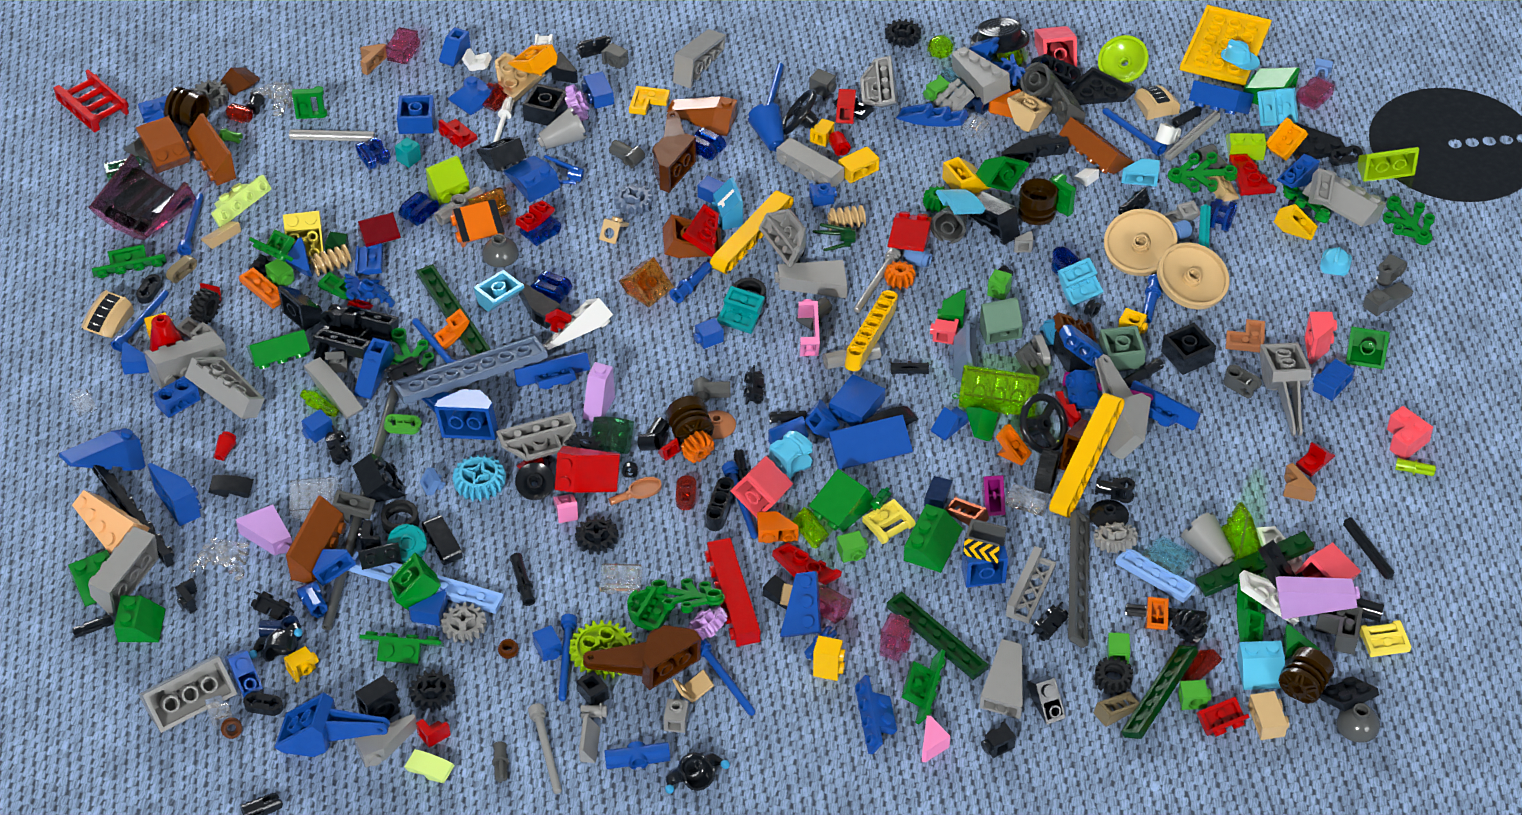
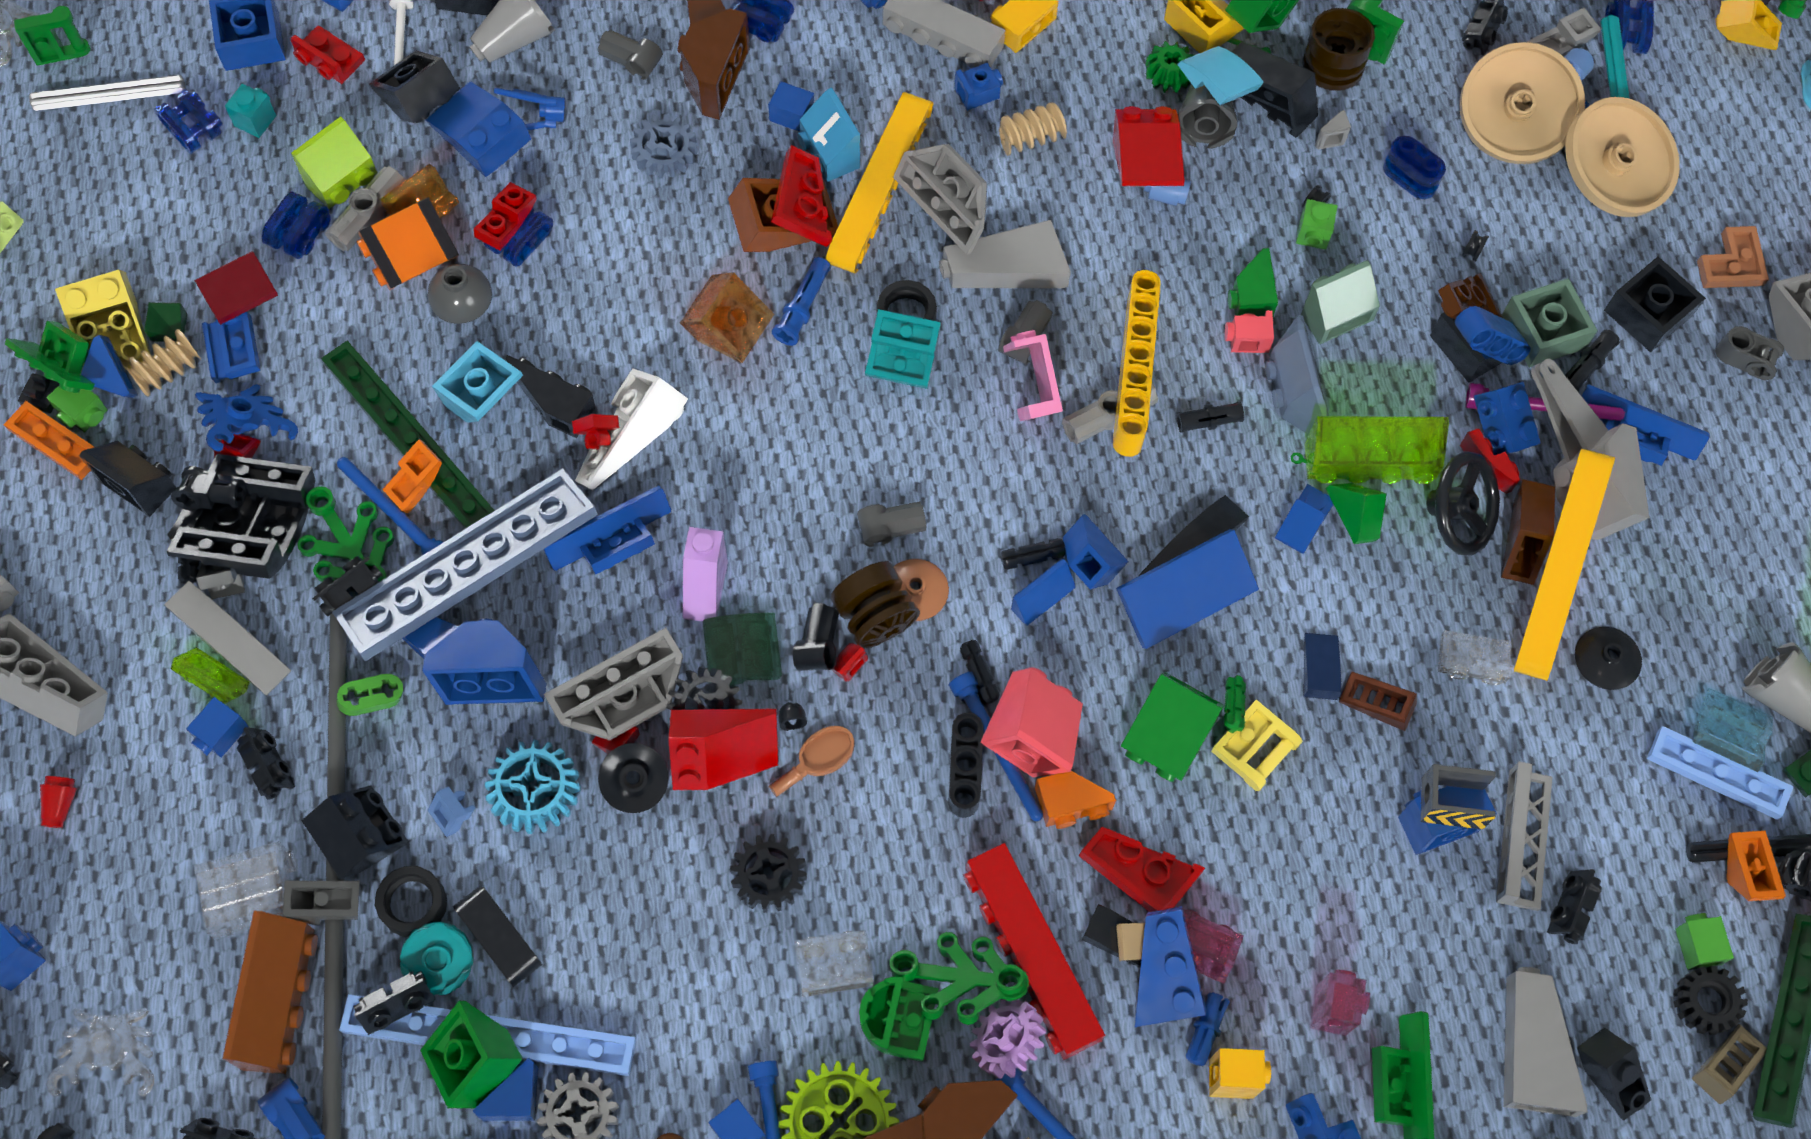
camera: 15 degrees left, 20 degrees up
(229, 484) = (86, 886): black slope -> none
(266, 530) = (175, 976): lavender slope -> none
(279, 349) = (108, 569): green slope -> none
(332, 564) = (309, 1041): blue slope -> none
(333, 285) = (180, 410): green slope -> none
(366, 536) = (358, 954): black bracket -> none
(376, 359) = (291, 587): blue slope -> none
(527, 595) = (678, 1030): black pin -> none
(552, 285) = (566, 353): clear blue brick -> none
(566, 508) = (699, 819): bright pink slope -> none
(615, 224) = (645, 203): tan bracket -> none
(684, 493) = (900, 750): clear red plate -> none
(697, 446) = (900, 653): orange gear -> none
(708, 333) = (859, 405): blue brick -> none
(754, 384) = (960, 515): black hinge -> none
(791, 453) = (1065, 641): medium azure piece -> none
(810, 527) = (1131, 786): clear neon green plate -> none
(846, 234) = (1038, 163): dark green plant -> none
(851, 546) = (1211, 814): bright green brick -> none
(856, 400) = (1142, 505): blue brick -> none
(891, 255) = (1123, 197): light grey piece -> none
(899, 274) = (1147, 230): orange gear -> none
(932, 539) = (1340, 771): green slope -> none
(938, 636) = (1399, 973): dark green plate -> none
(993, 495) = (1419, 662): magenta slope -> none
(1012, 445) = (1422, 552): orange slope -> none
(1030, 362) = (1408, 380): dark grey slope -> none
(1041, 349) = (1418, 346): light grey plate -> none
(1047, 470) = (1499, 601): black tyre -> none
(1049, 331) = (1423, 303): dark azure bracket -> none
(1078, 579) = (1602, 815): dark grey plate -> none
(1079, 282) = (1447, 200): medium azure slope -> none
(1115, 537) = (1639, 711): light grey gear -> none
(1116, 488) = (1611, 608): black connector -> none
(1134, 318) = (1545, 255): yellow brick -> none
(1152, 292) = (1562, 198): blue pin -> none

